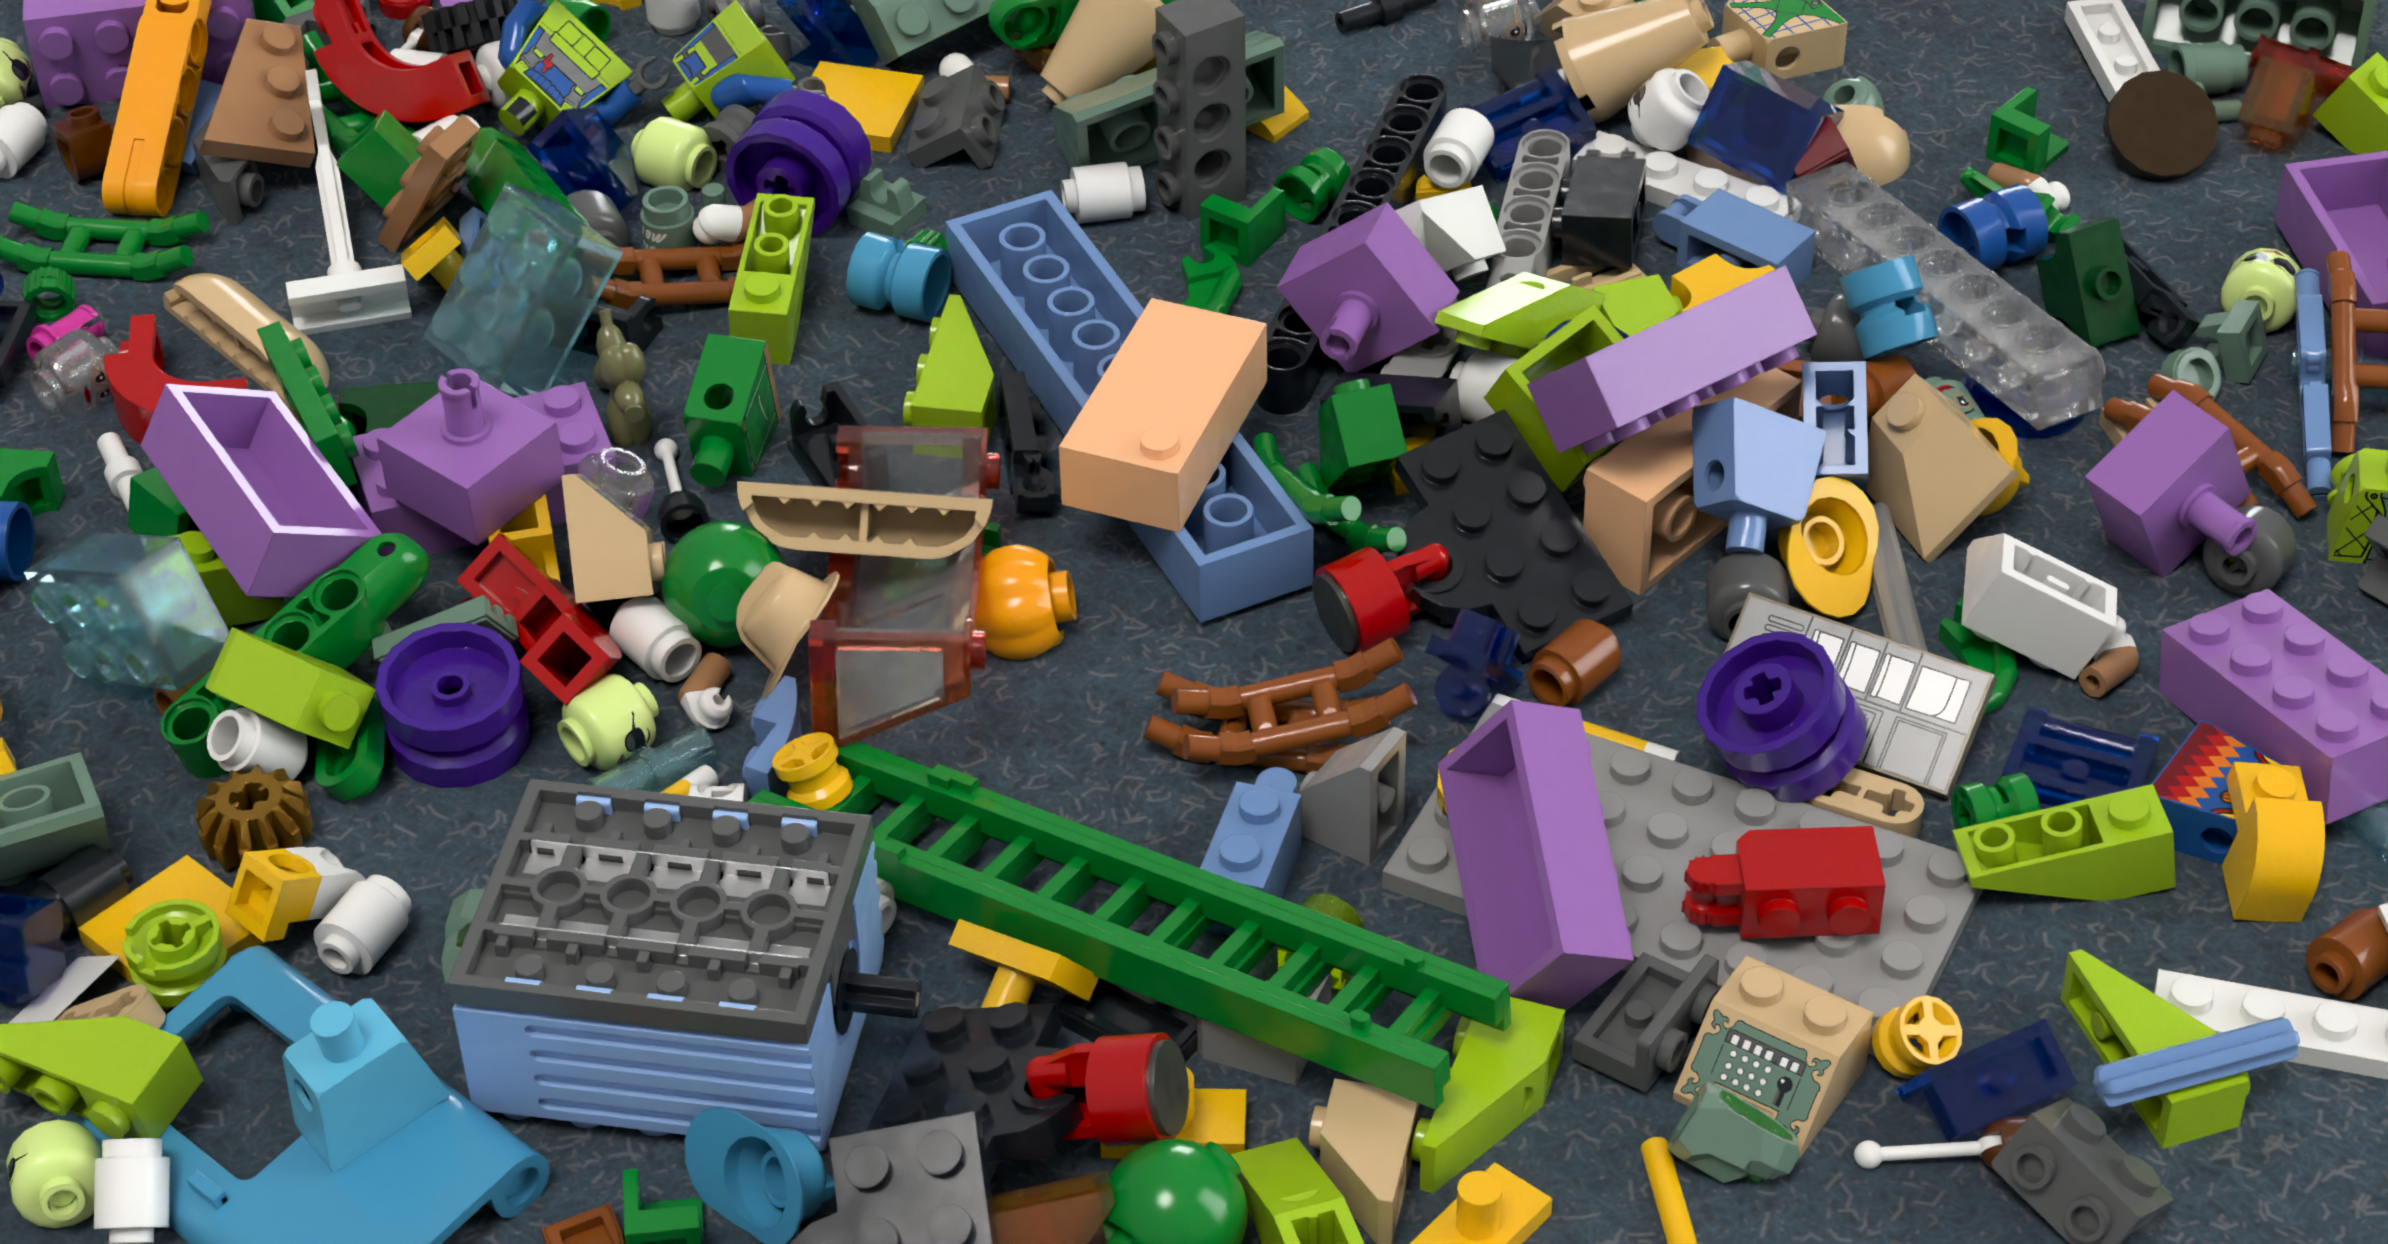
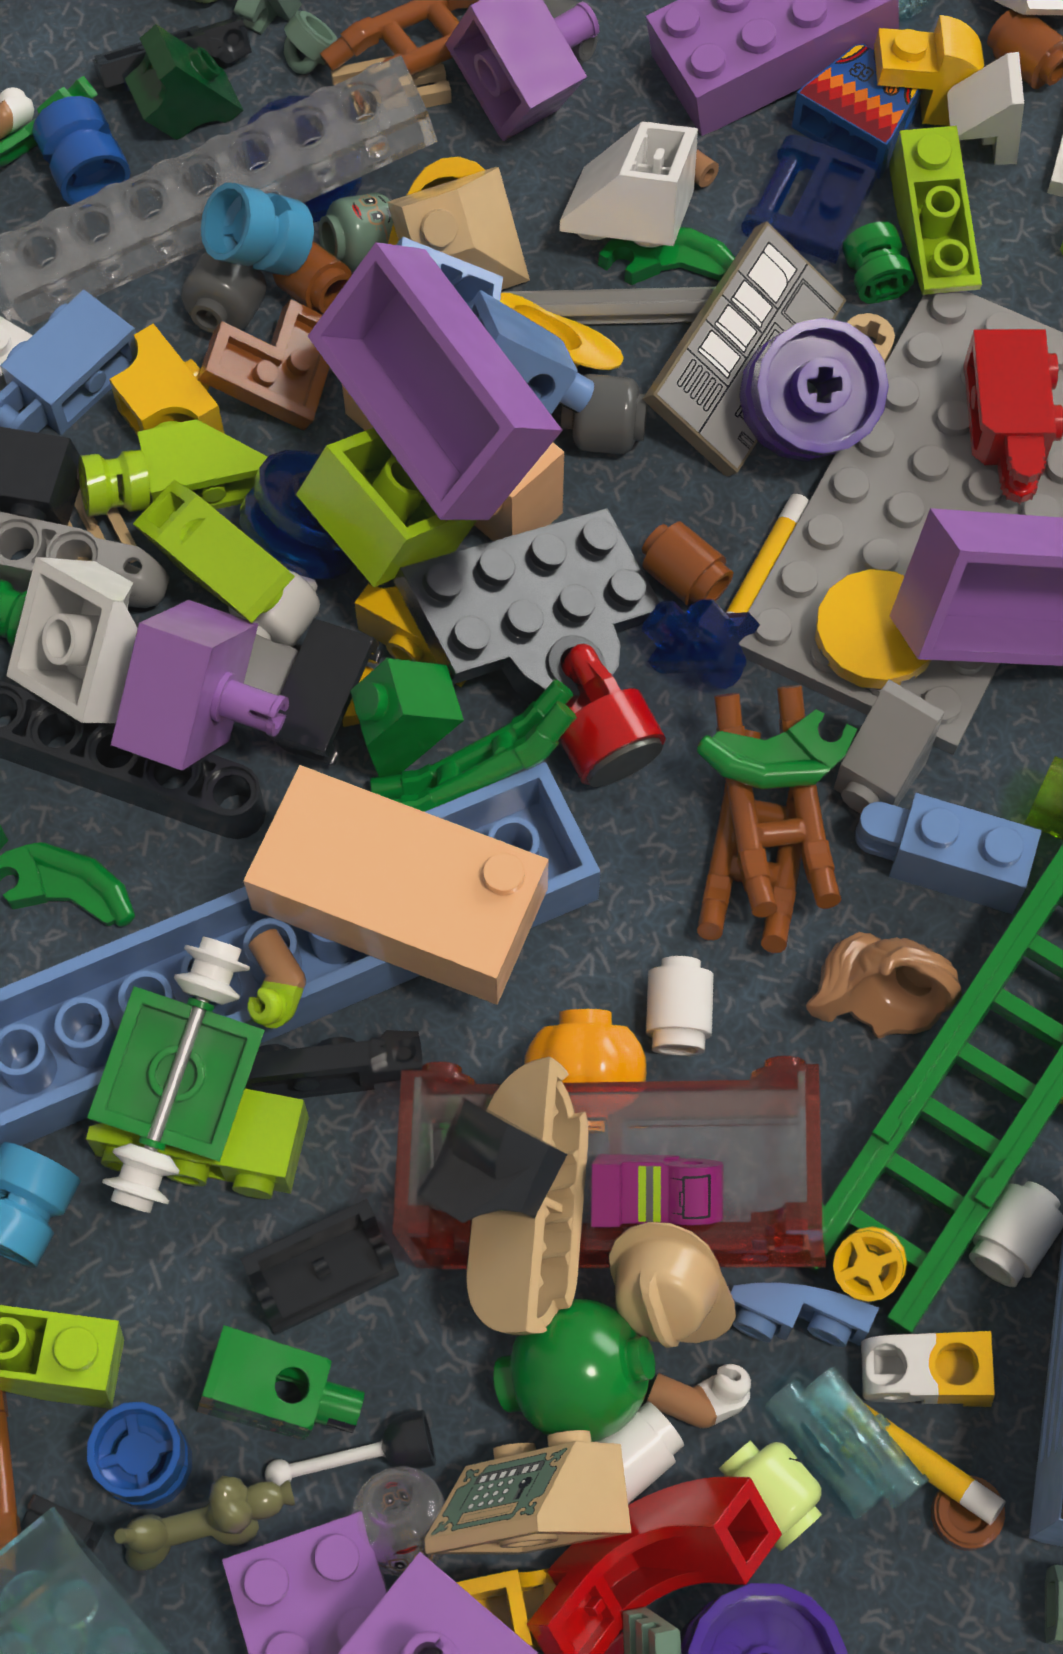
camera: 90 degrees left, 25 degrees up
(656, 766) = (864, 1437): none -> clear light blue pin
(672, 343) = (139, 1455): none -> blue wheel
(881, 587) = (655, 1190): none -> magenta leg
(900, 467) = (490, 1166): none -> black slope
(991, 310) = (176, 1074): none -> green plate
(1073, 366) = (282, 983): none -> arm
(1083, 667) = (679, 1006): none -> white brick
(1111, 788) = (885, 984): none -> medium nougat hair
(1329, 696) = (782, 761): none -> green piece
(1600, 259) = (114, 482): none -> lime wheel
(2221, 894) = (991, 107): none -> white slope

